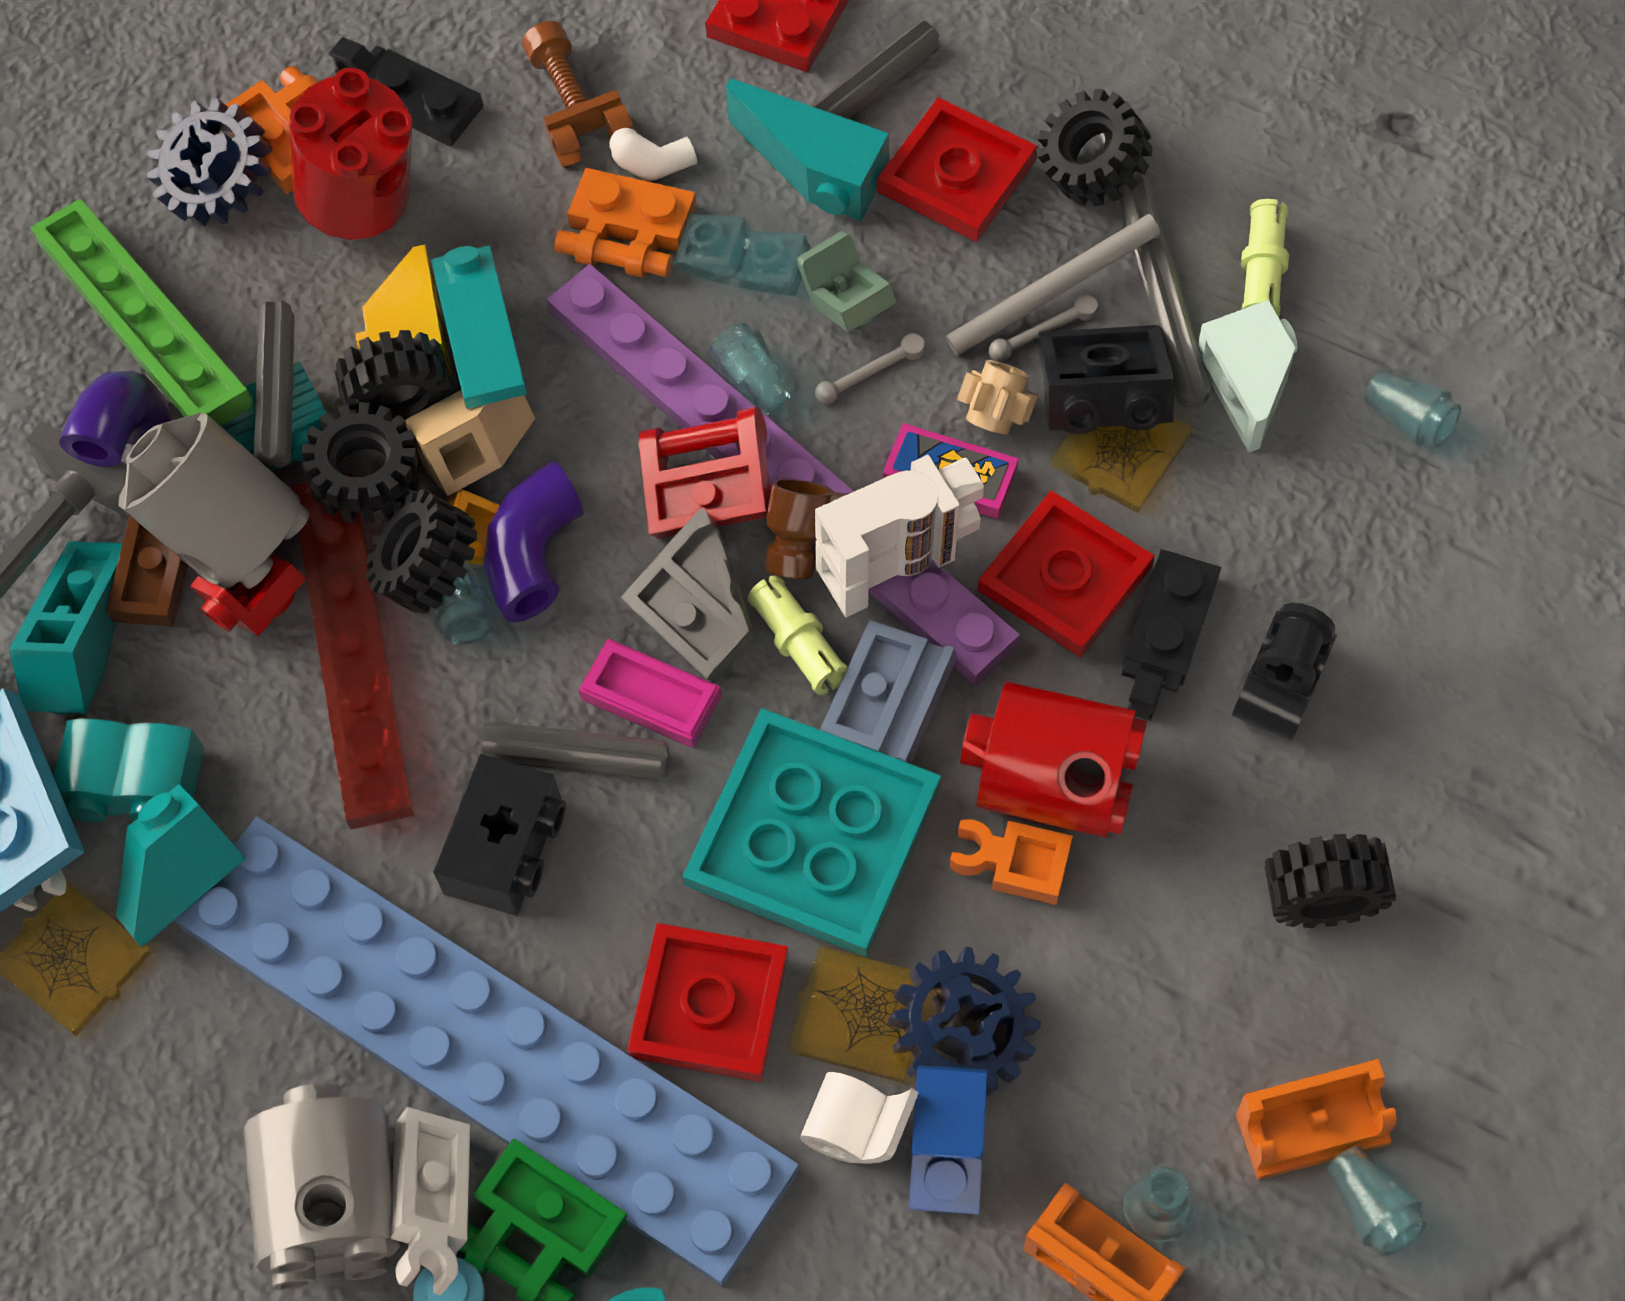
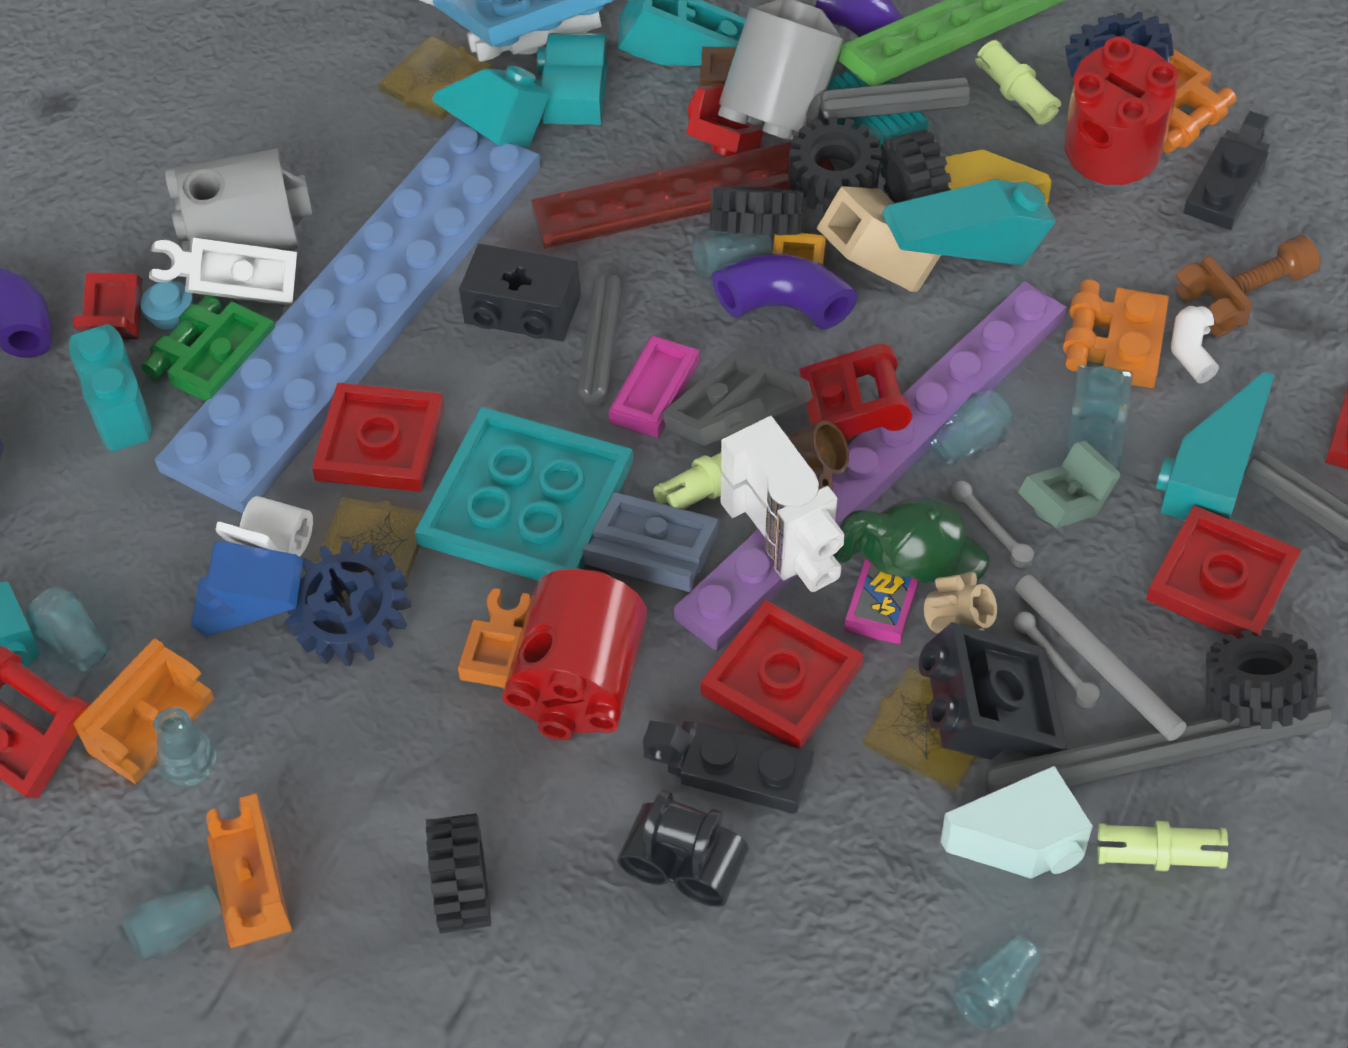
camera: 85 degrees right, 10 degrees down
(230, 275) = (1018, 82): none -> yellowish green pin
(908, 420) = (913, 540): none -> dark green hair

